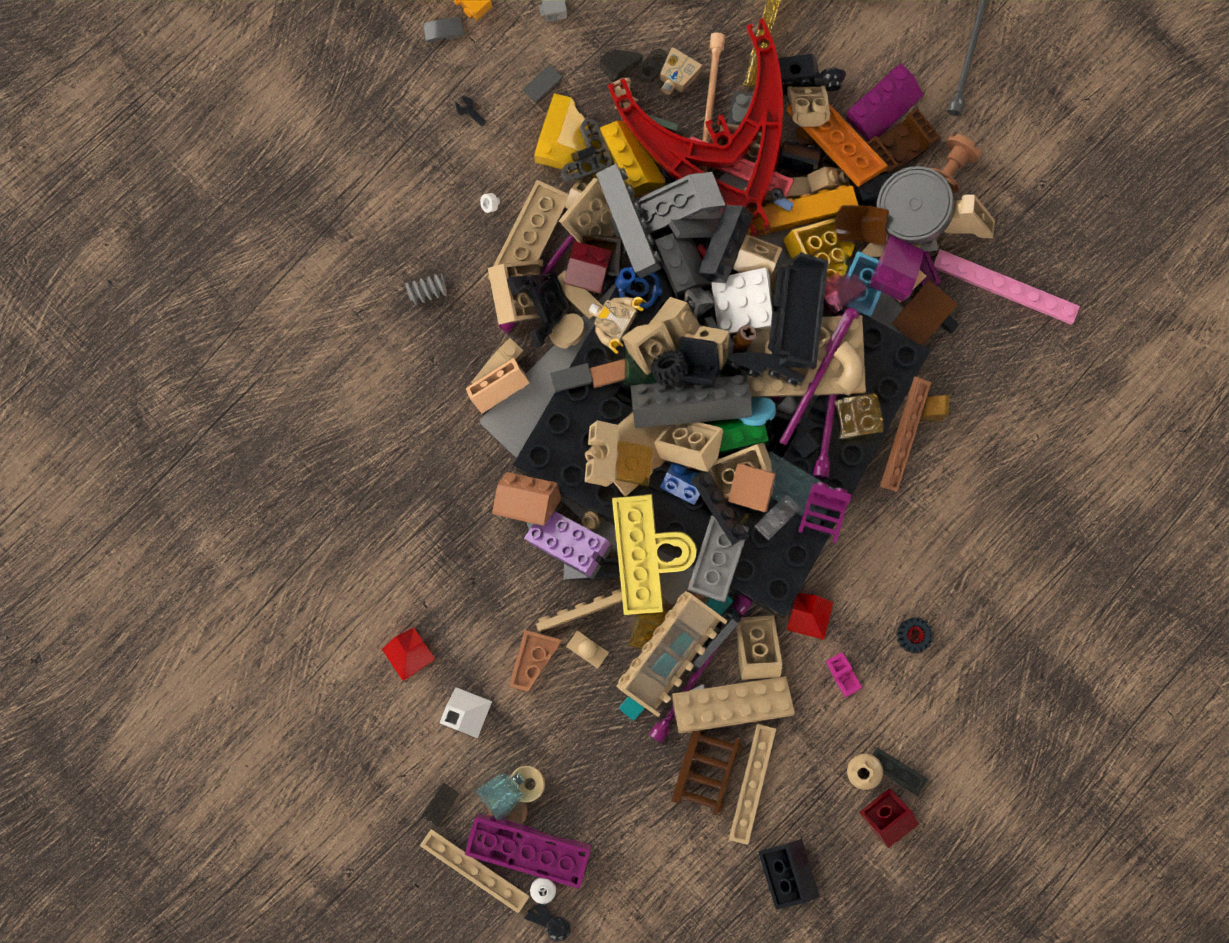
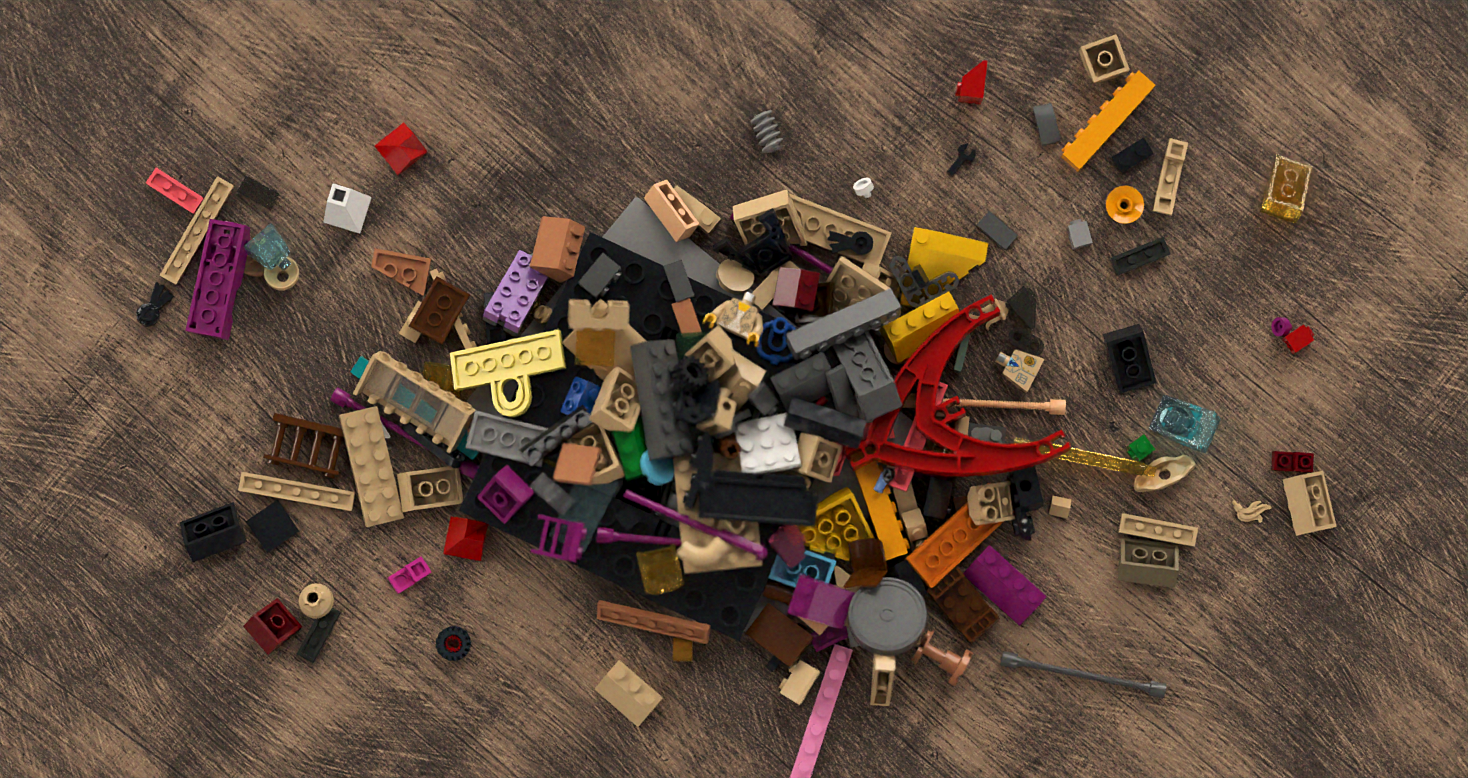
camera: 90 degrees right, 5 degrees up
(399, 88) = (972, 85): none -> red slope
(430, 891) = (174, 190): none -> coral plate
(545, 208) = (860, 242): none -> black piece
(548, 885) = (184, 292): white head -> none
(560, 453) = (600, 276): none -> dark grey brick
(579, 623) = (439, 310): none -> reddish brown tile
(775, 564) = (505, 494): none -> magenta slope
(786, 812) = (272, 526): none -> black tile
(813, 46) = (1060, 507): none -> tan slope
(883, 308) = (777, 591): none -> reddish brown piece
(972, 298) = (799, 682): none -> tan slope
(972, 465) = (628, 693): none -> tan slope

